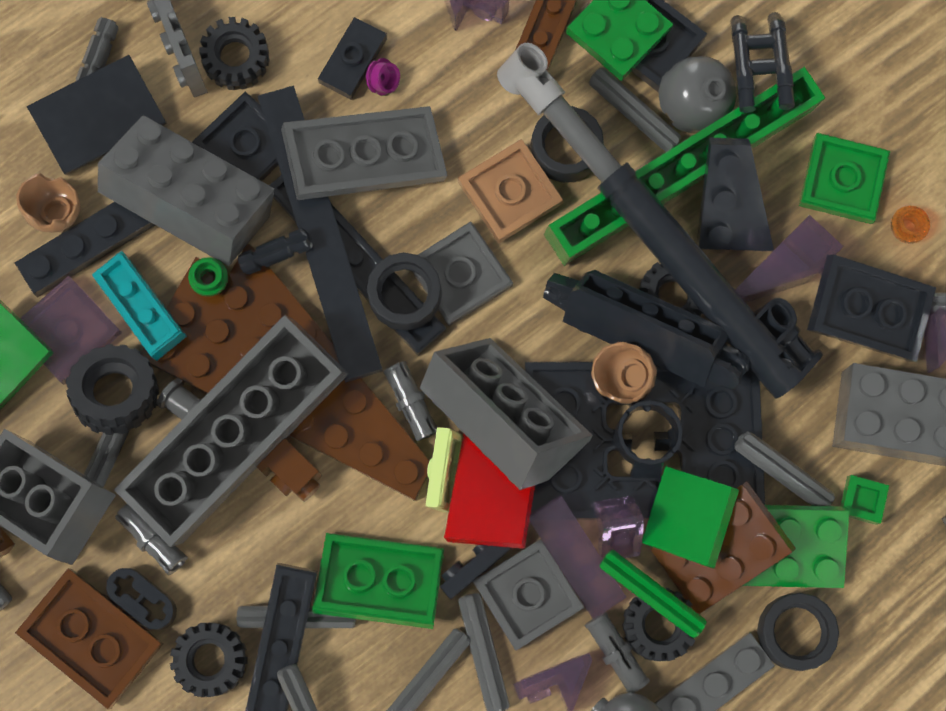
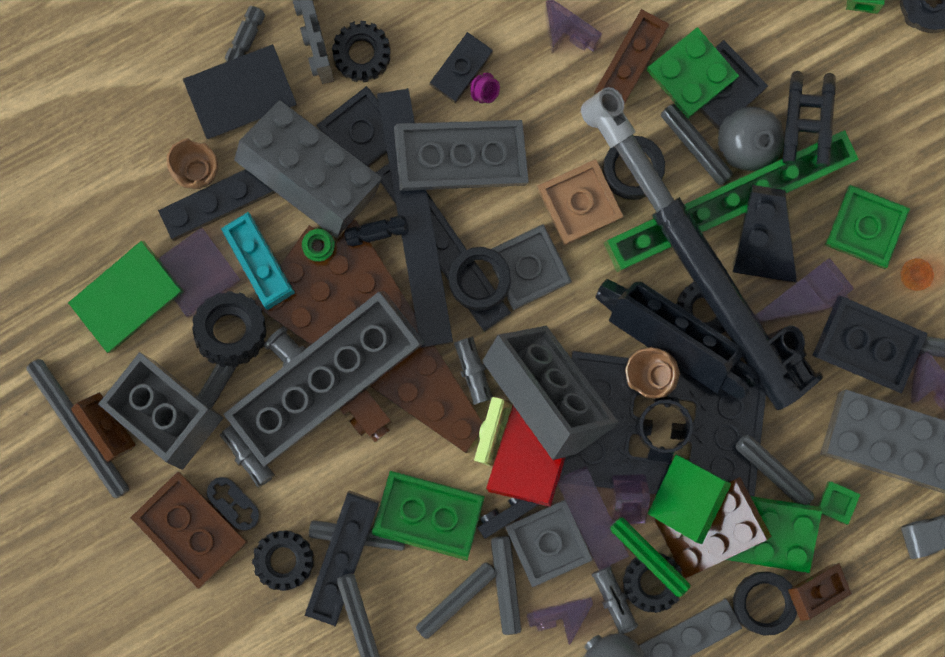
camera: 15 degrees right, 5 degrees up
(861, 608) = (819, 592): none -> reddish brown plate

